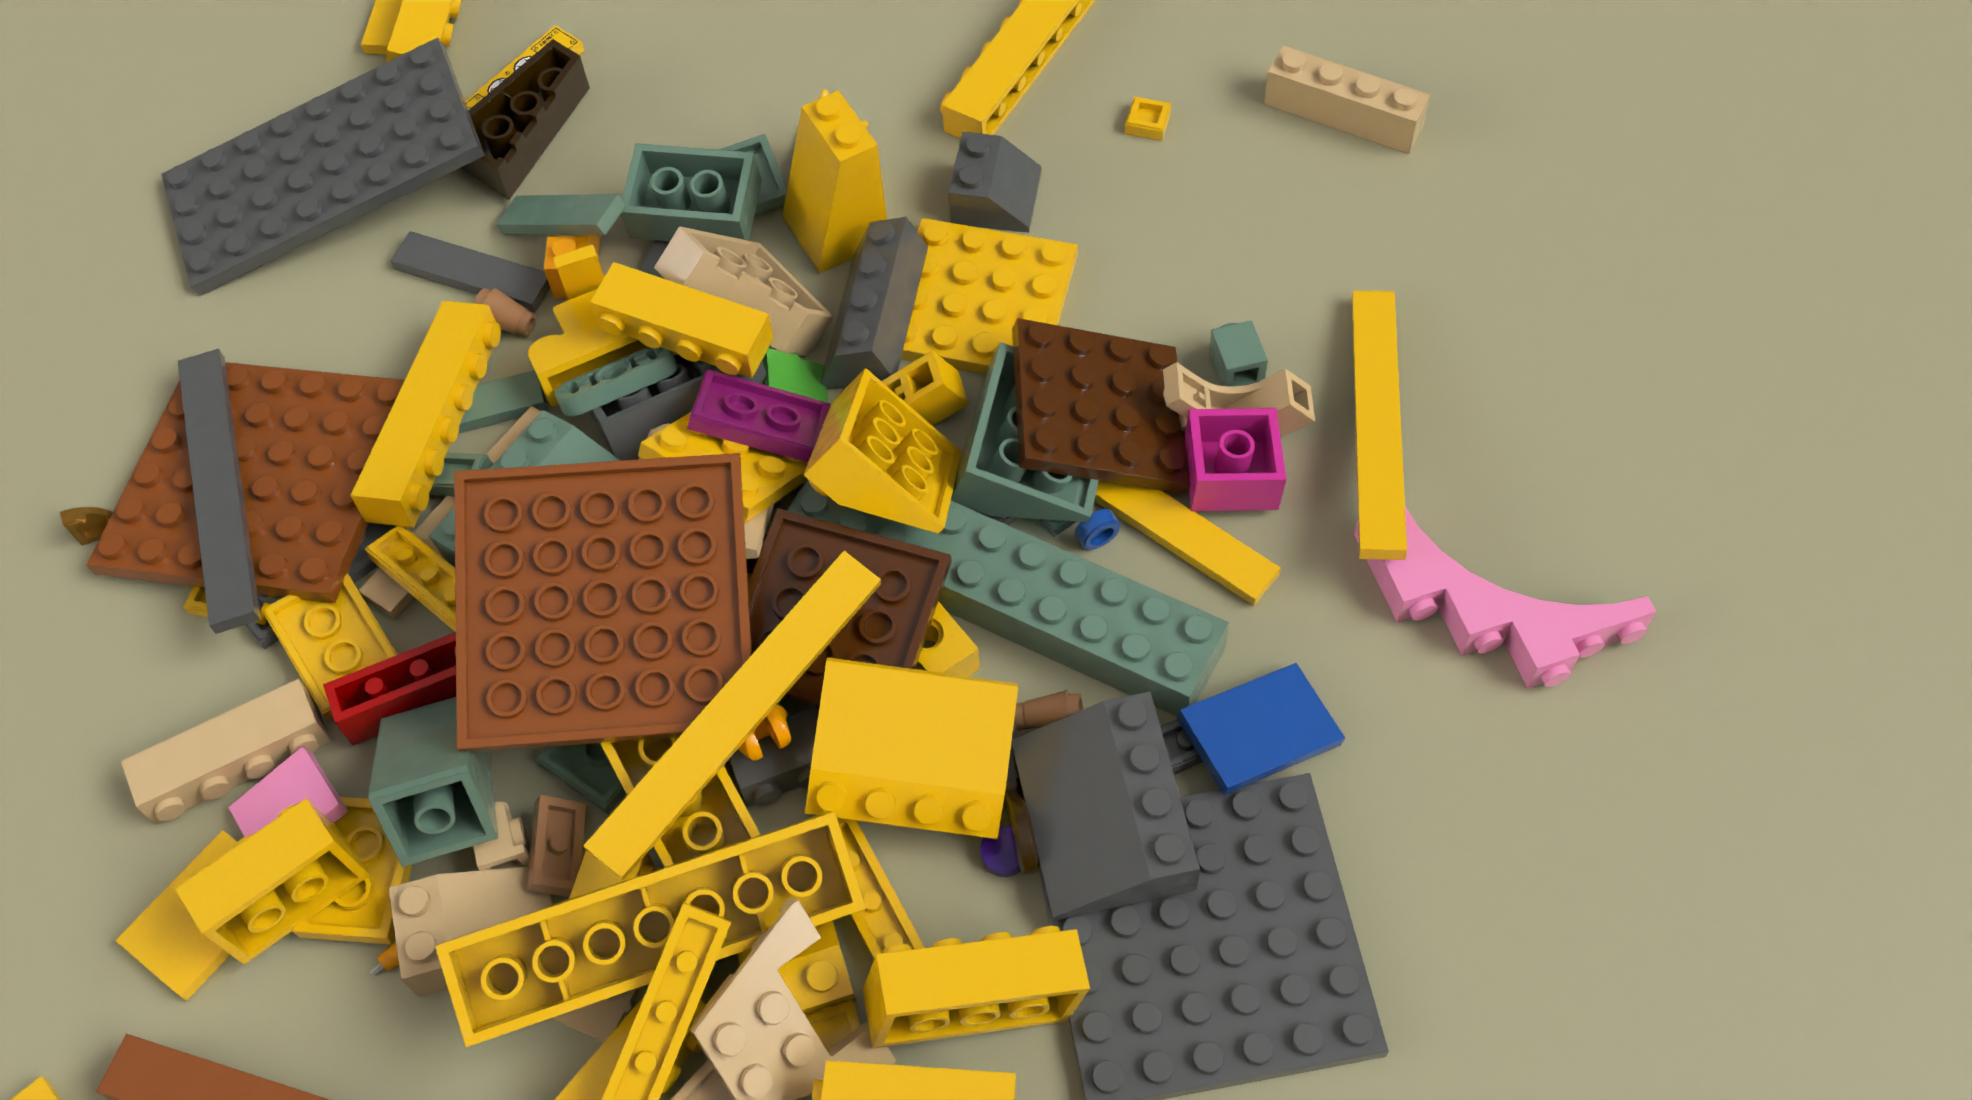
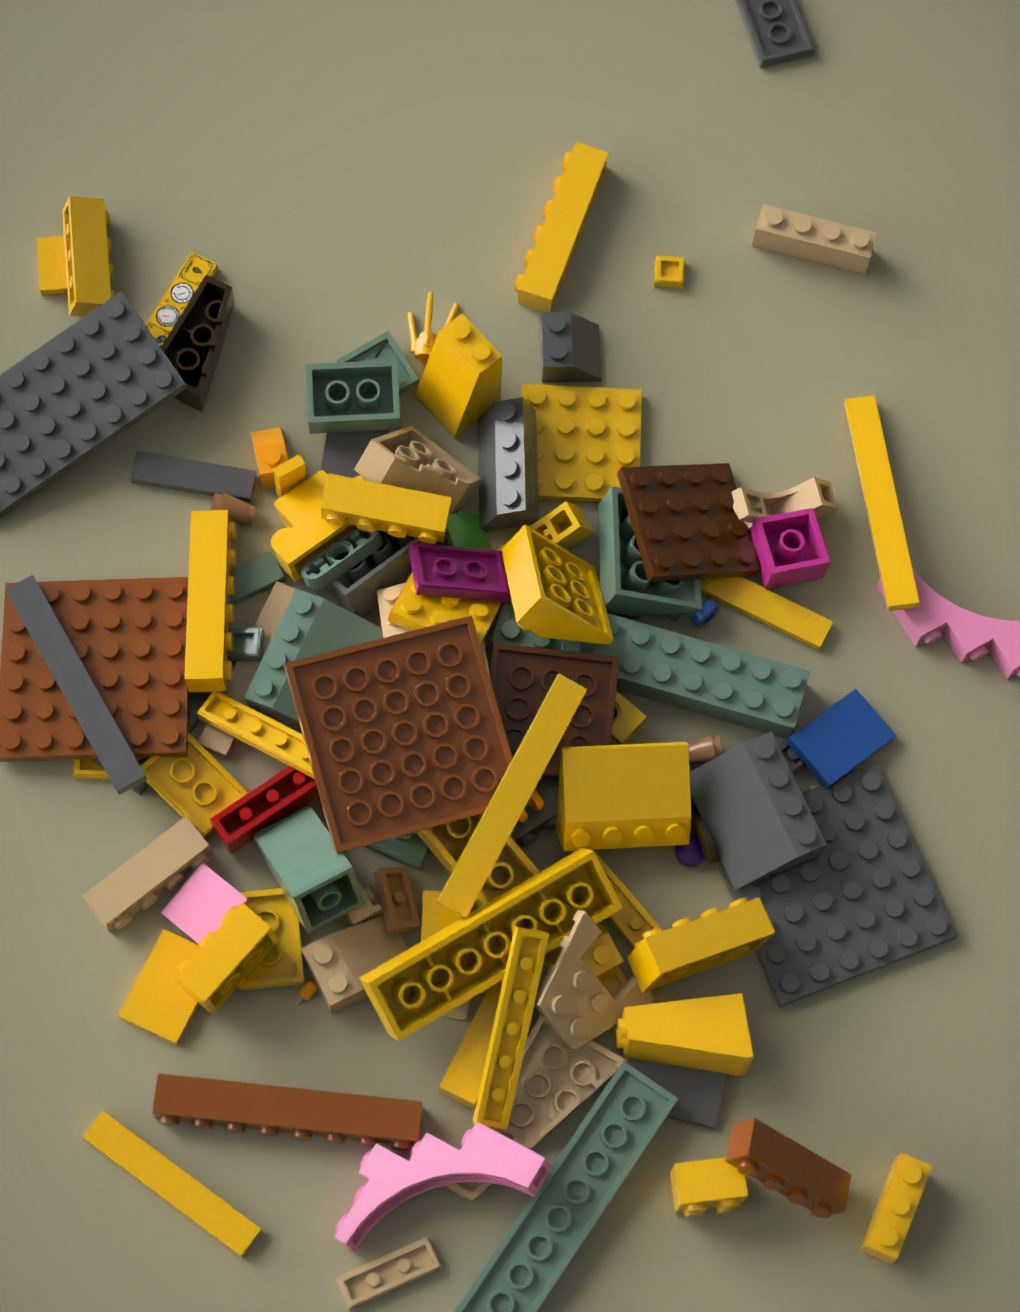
camera: 20 degrees left, 10 degrees up
(561, 214) = (257, 426): sand green tile -> none
(1237, 354) = (774, 464): sand green brick -> none

